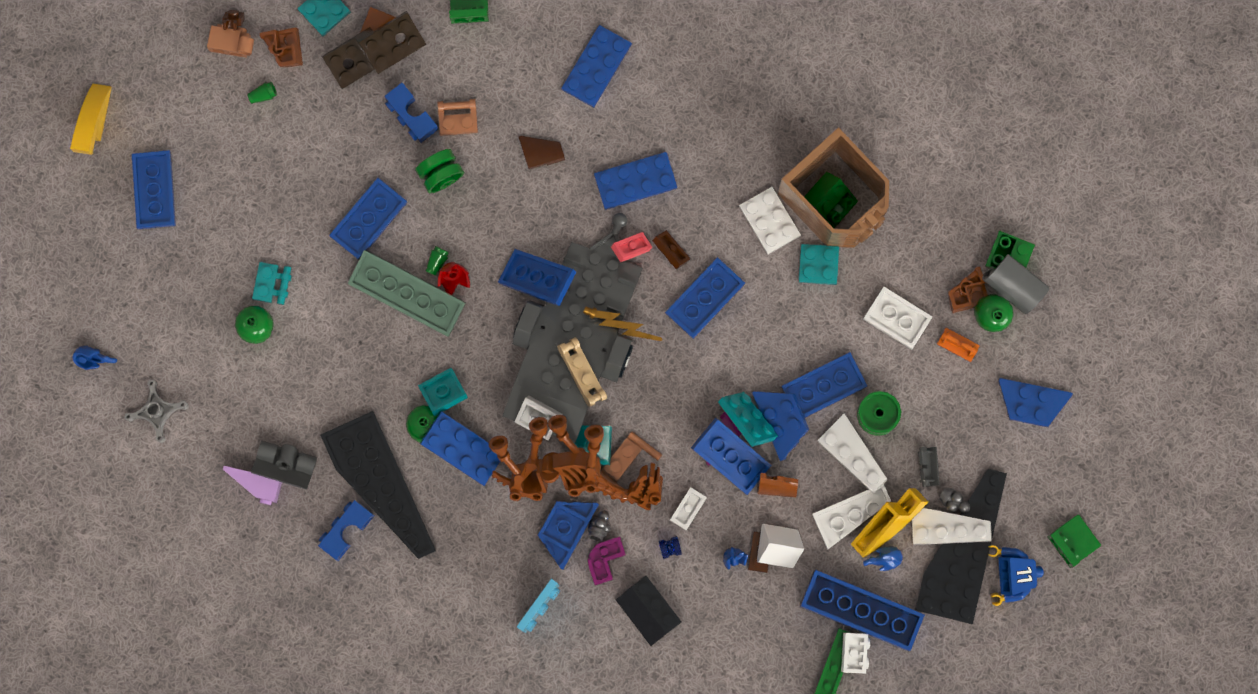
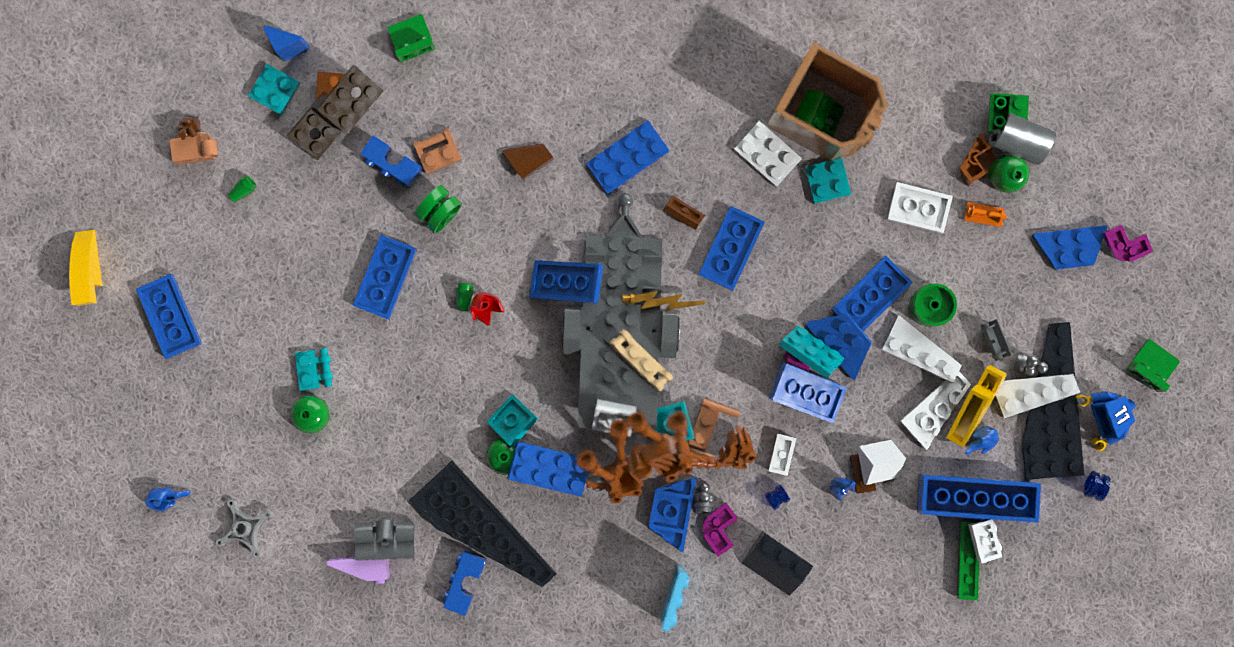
camera: 20 degrees left, 5 degrees up
(285, 54) = (251, 143): dark orange slope -> none
(406, 293) = (445, 336): sand green plate -> none
(596, 66) = (553, 59): blue plate -> none
(631, 247) = (645, 222): coral plate -> none
(777, 486) = (860, 405): dark orange slope -> none
(980, 637) = (1097, 486): none -> clear blue wheel
(1080, 420) = (1126, 249): none -> magenta plate

